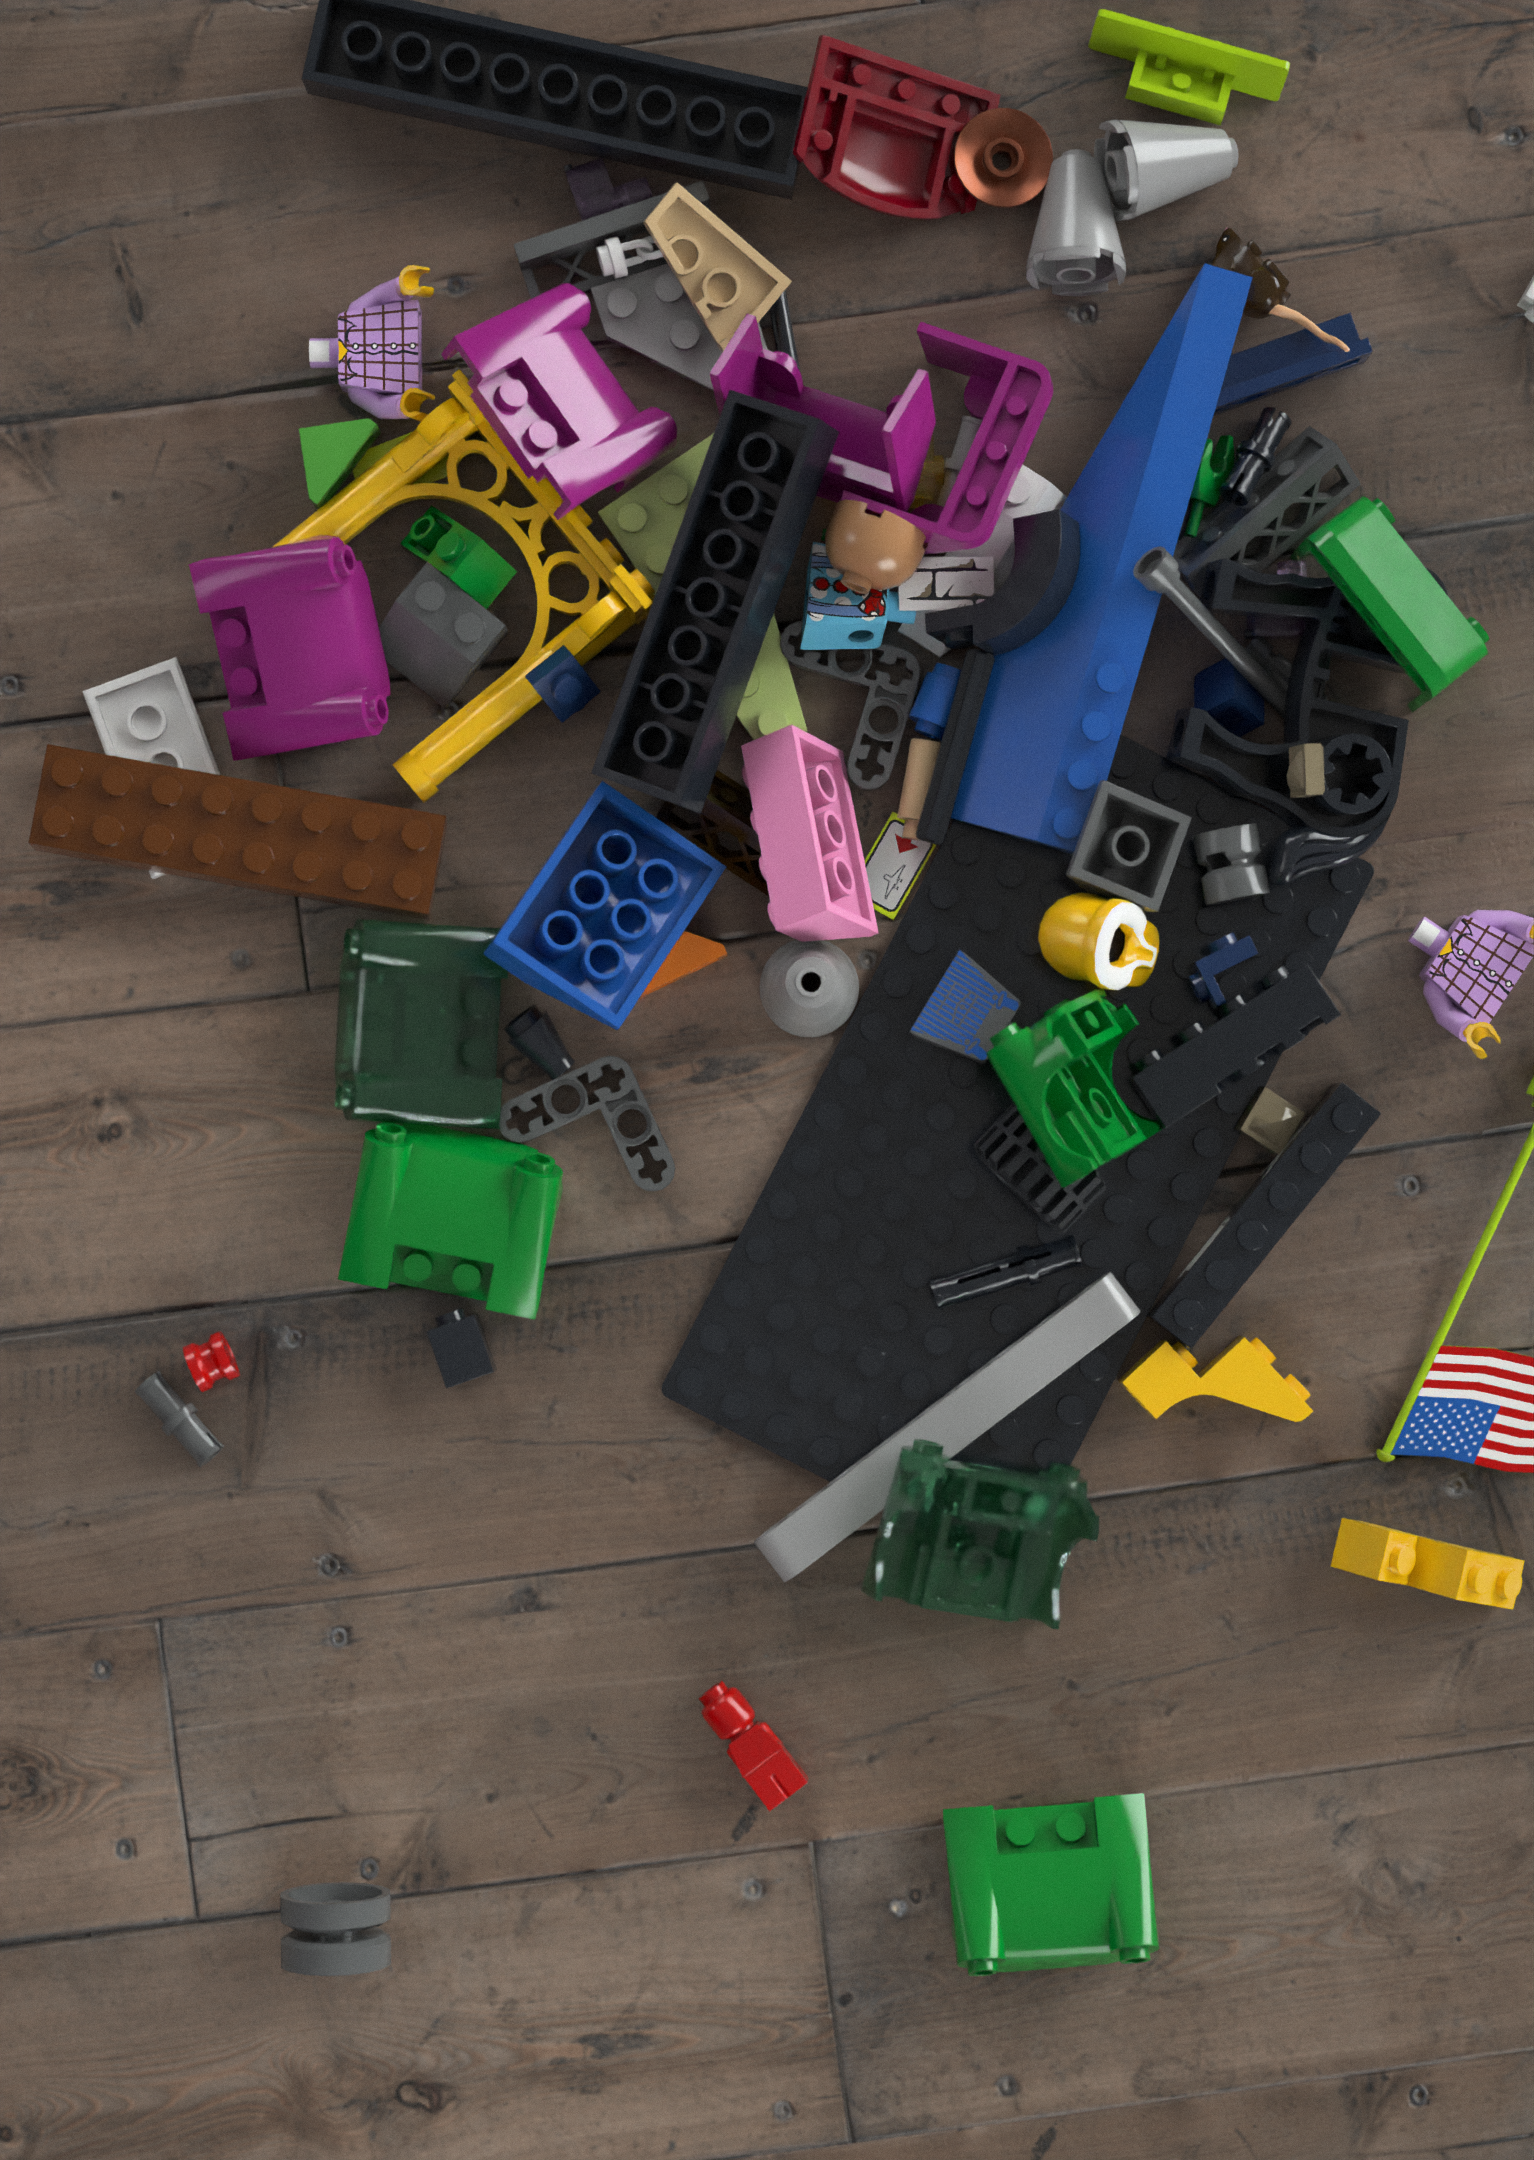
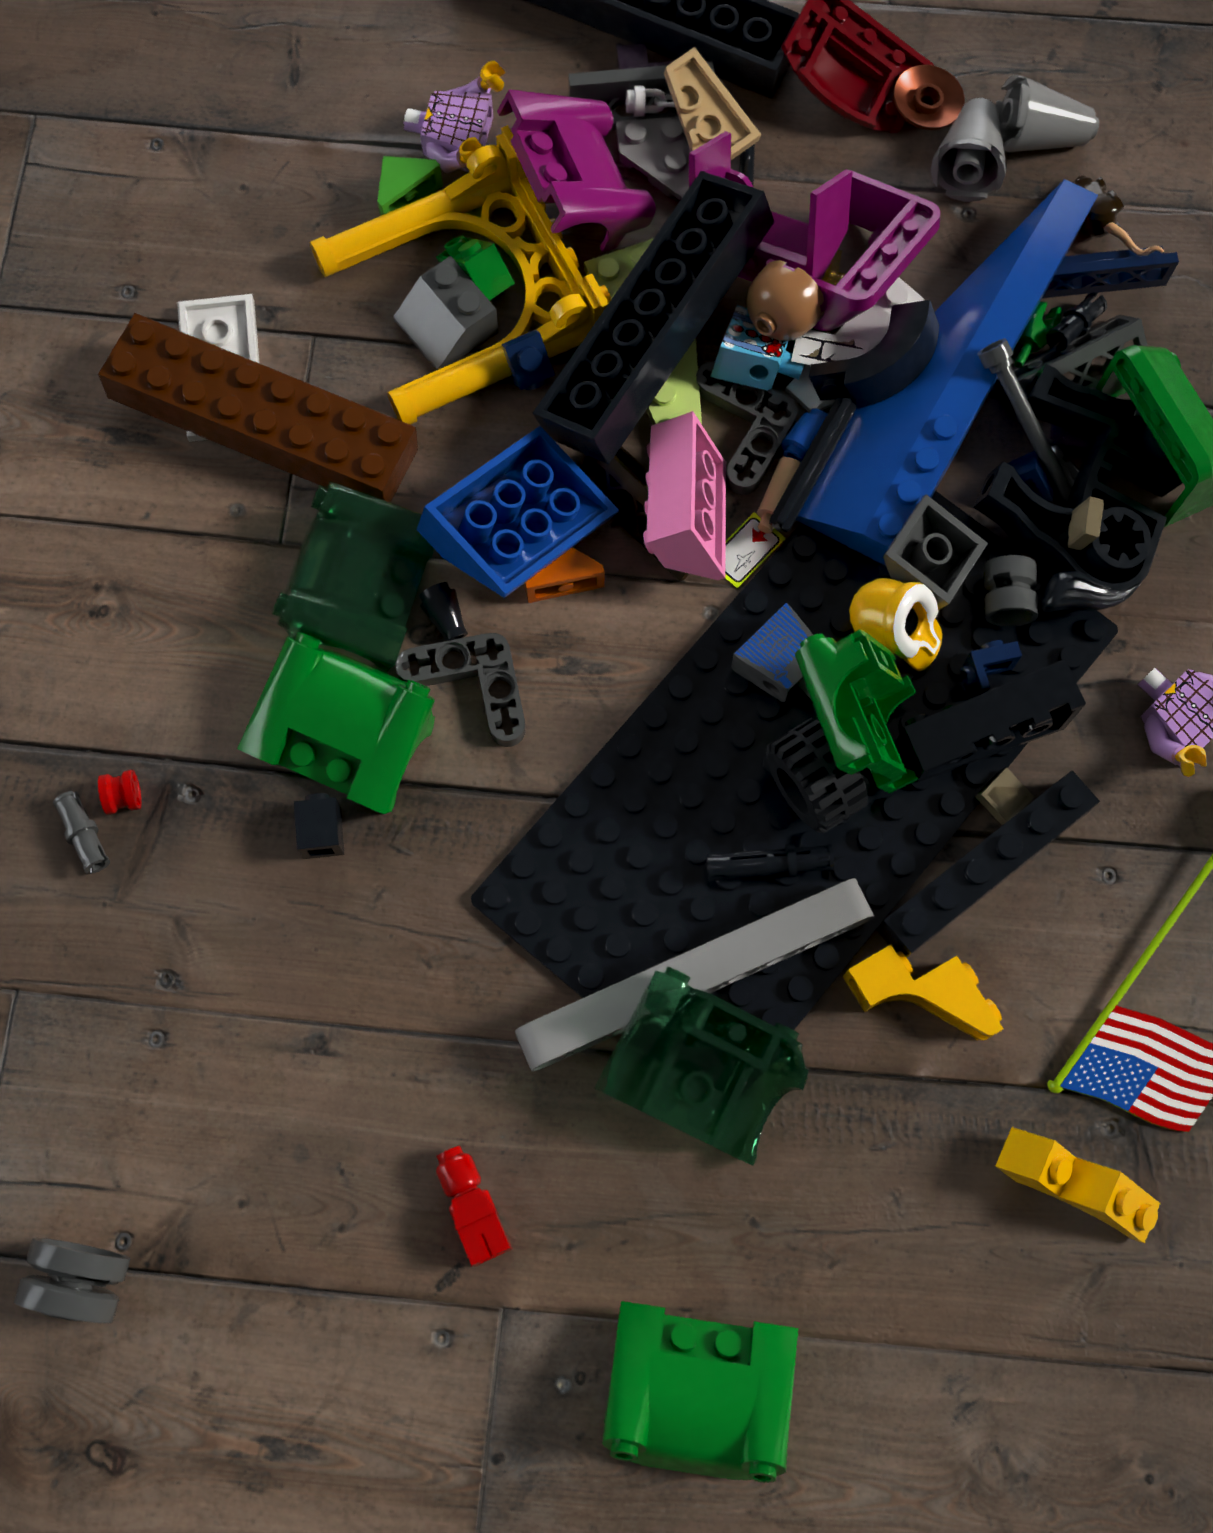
camera: 20 degrees right, 15 degrees down
(295, 645) = (339, 289): magenta piece -> none
(803, 1011) = (662, 616): light grey cone -> none
(1183, 69) = (1071, 66): lime bracket -> none

